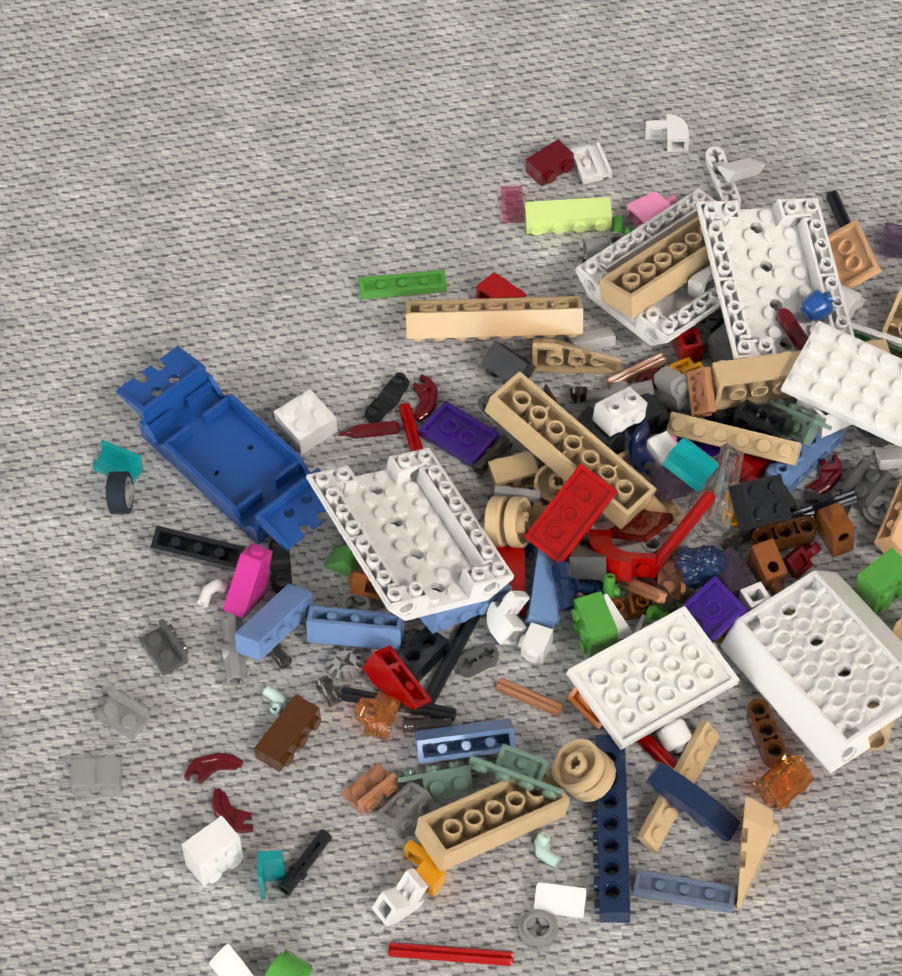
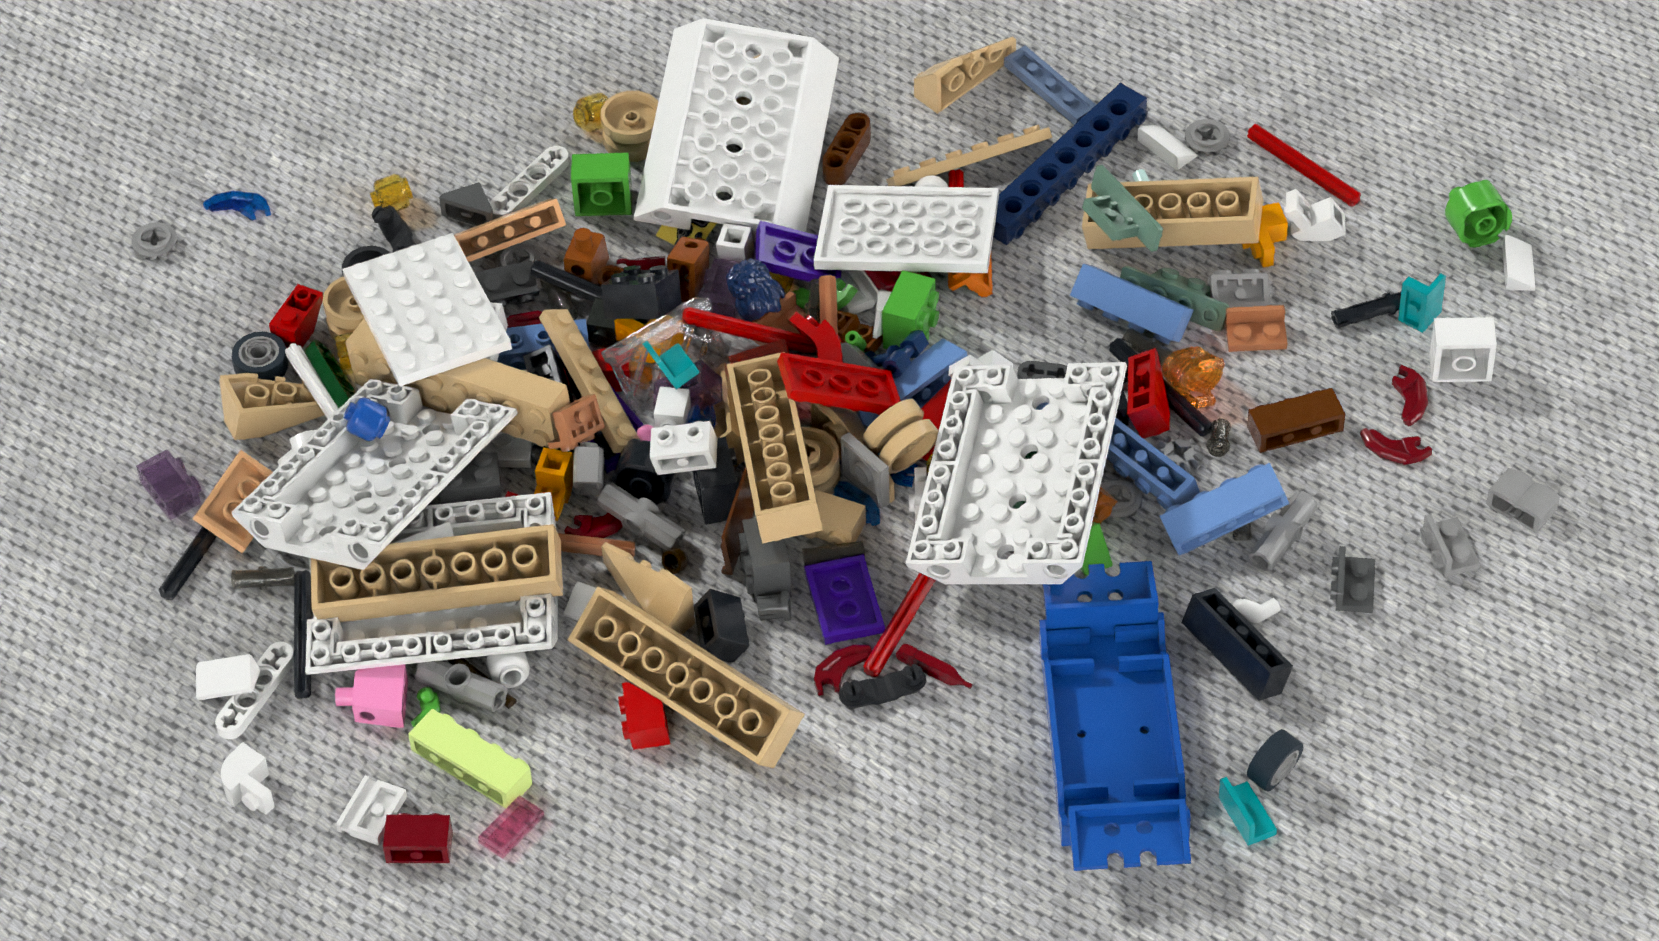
camera: 140 degrees left, 5 degrees down
(249, 581) = (1219, 560): dark pink slope -> none
(278, 700) = (1280, 459): light aqua arm -> none
(279, 566) = (1170, 575): black piece -> none
(305, 421) = (997, 713): white brick -> none
(402, 284) = (735, 809): bright green plate -> none
(528, 696) = (1027, 316): nougat axle -> none
(536, 643) = (976, 341): white brick -> none
(583, 770) = (1052, 192): tan wheel -> none
(693, 800) = (977, 123): dark blue slope -> none
(784, 782) = (878, 99): clear orange brick -> none
(792, 328) = (413, 424): dark red piece -> none
(800, 423) = (518, 326): sand green bracket -> none

